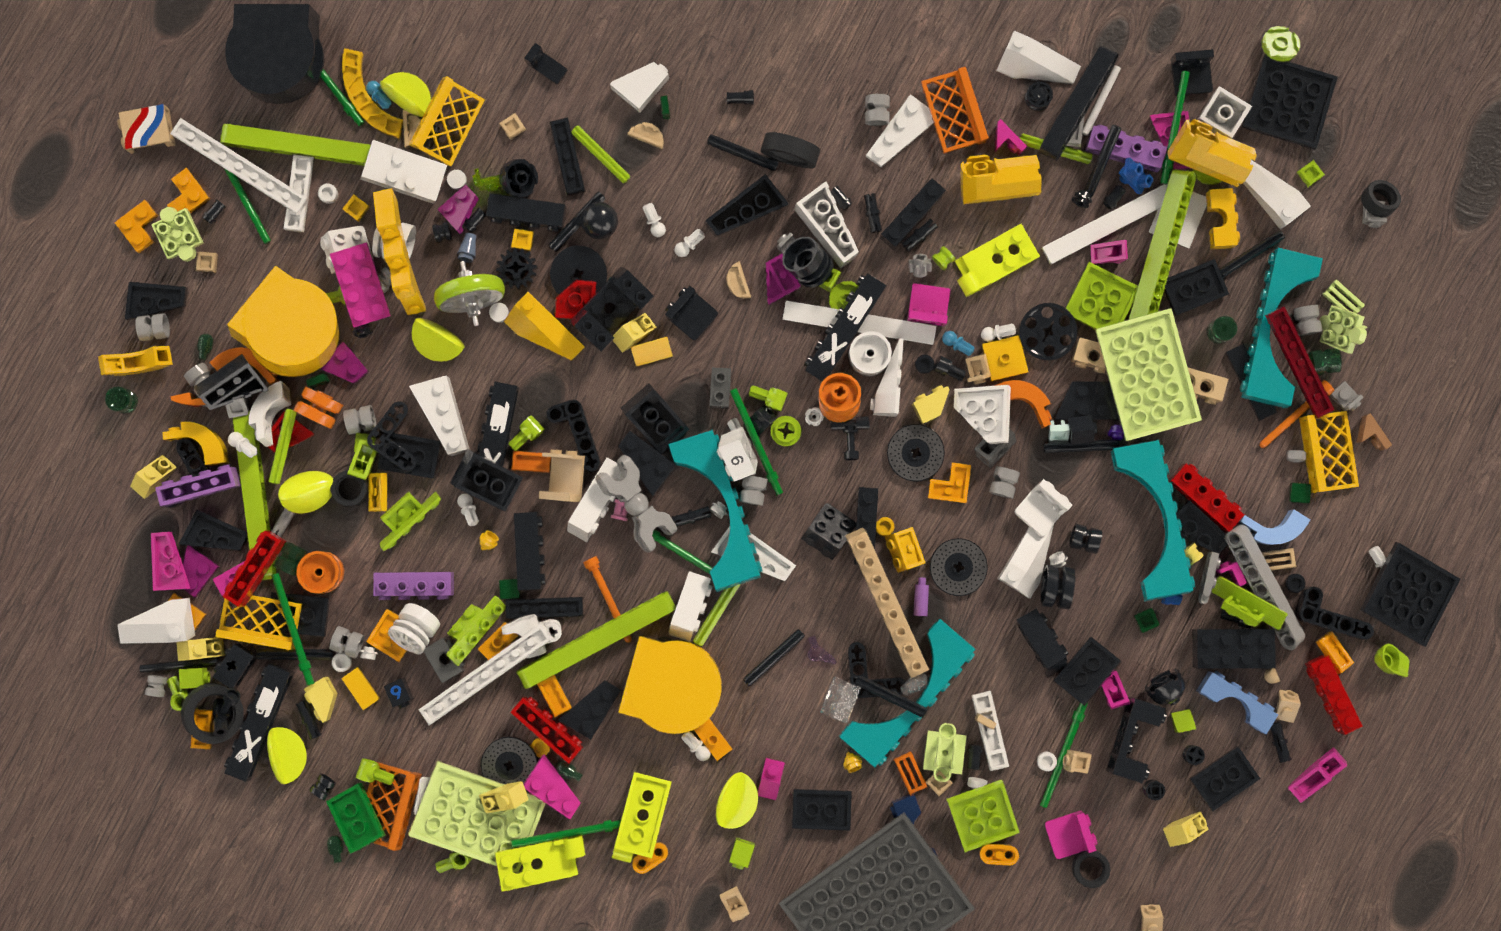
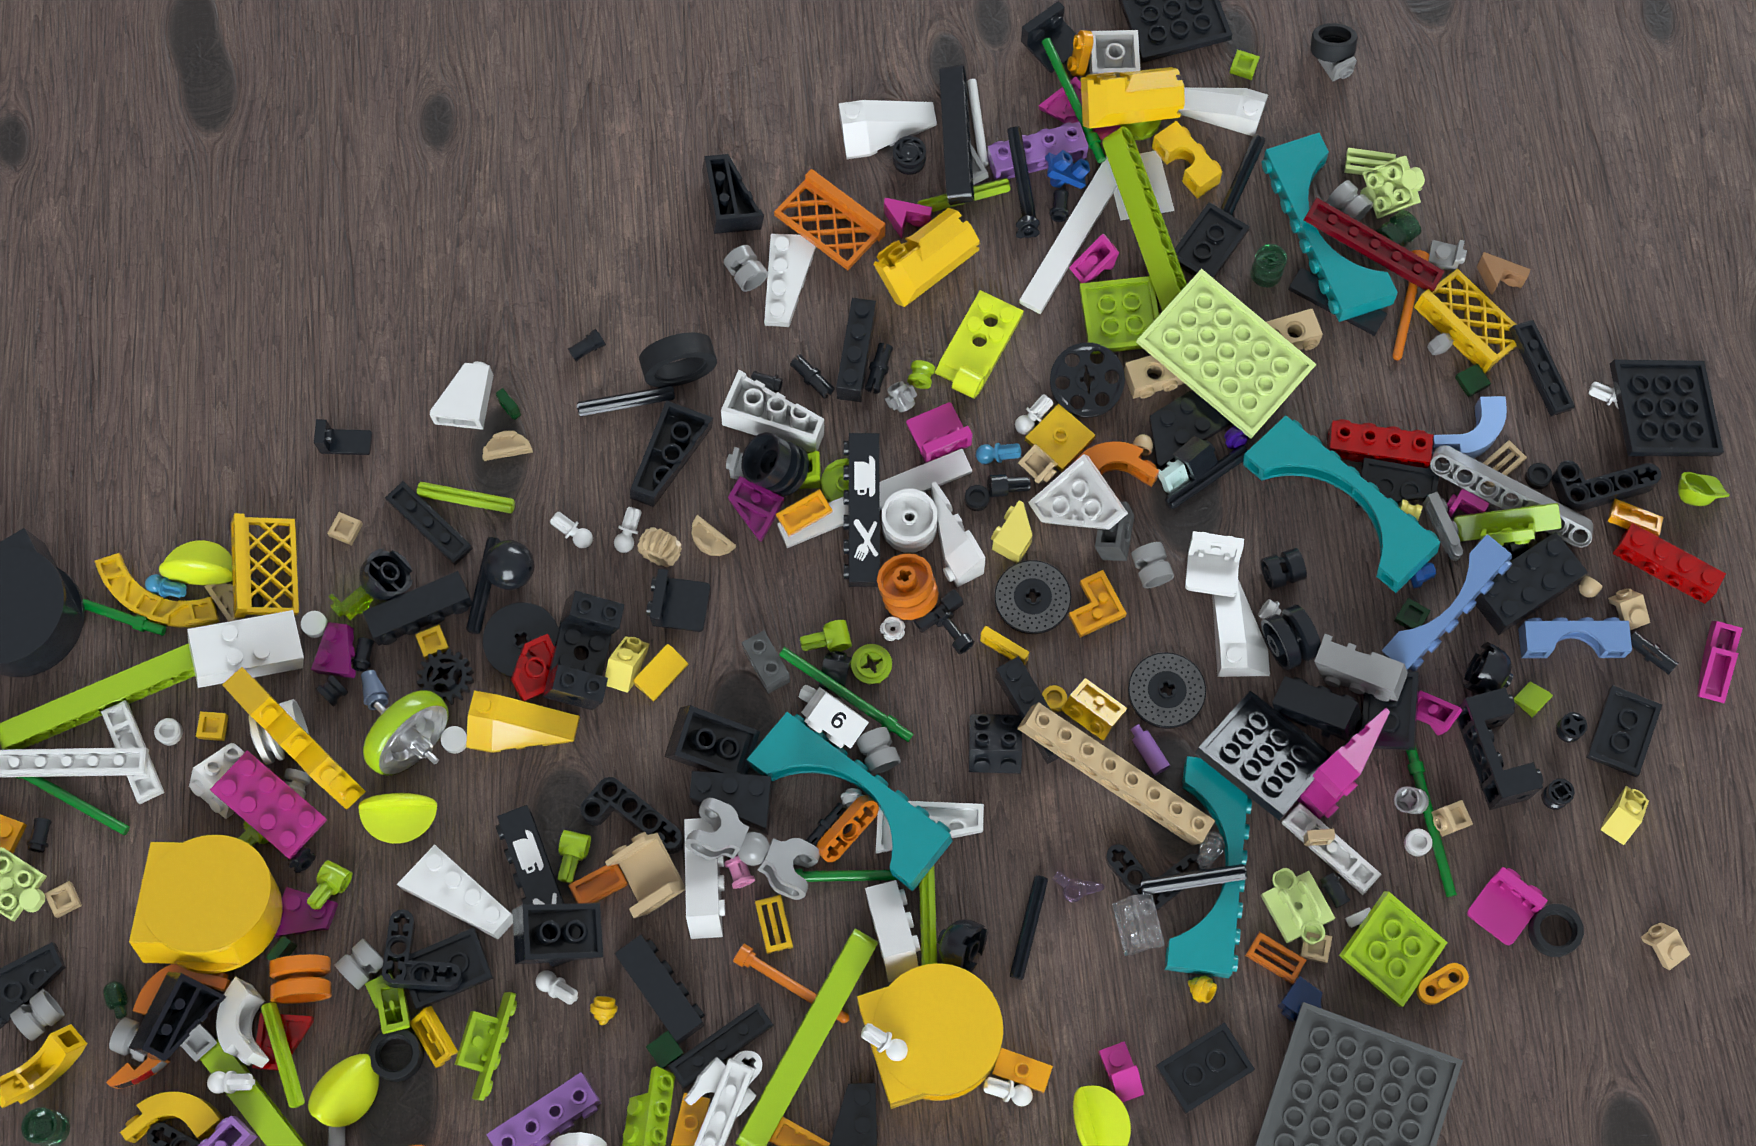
camera: 35 degrees left, 15 degrees down
(372, 355) = (330, 881): none -> lime axle
(616, 570) = (779, 946): none -> yellow tile
(641, 683) = (895, 1049): none -> white axle
(701, 269) = (659, 547): none -> tan gear
(719, 520) = (854, 810): none -> orange beam
(725, 642) = (961, 943): none -> black cylinder
(806, 305) = (804, 513): none -> light orange plate
(874, 471) = (1003, 645): none -> yellow tile
(897, 52) = (728, 198): none -> black wedge
(988, 649) = (1263, 755): none -> black plate
(1026, 694) = (1341, 770): none -> dark pink wedge
(1054, 397) = (1144, 442): none -> tan hinge
(1055, 733) = (1405, 799): none -> light grey wheel
(1085, 636) = (1360, 671): none -> light grey wedge
(1202, 97) = (1081, 53): none -> light orange plate
(1210, 622) = (1484, 564): none -> medium blue arch
(1351, 514) = (1542, 368): none -> black tile

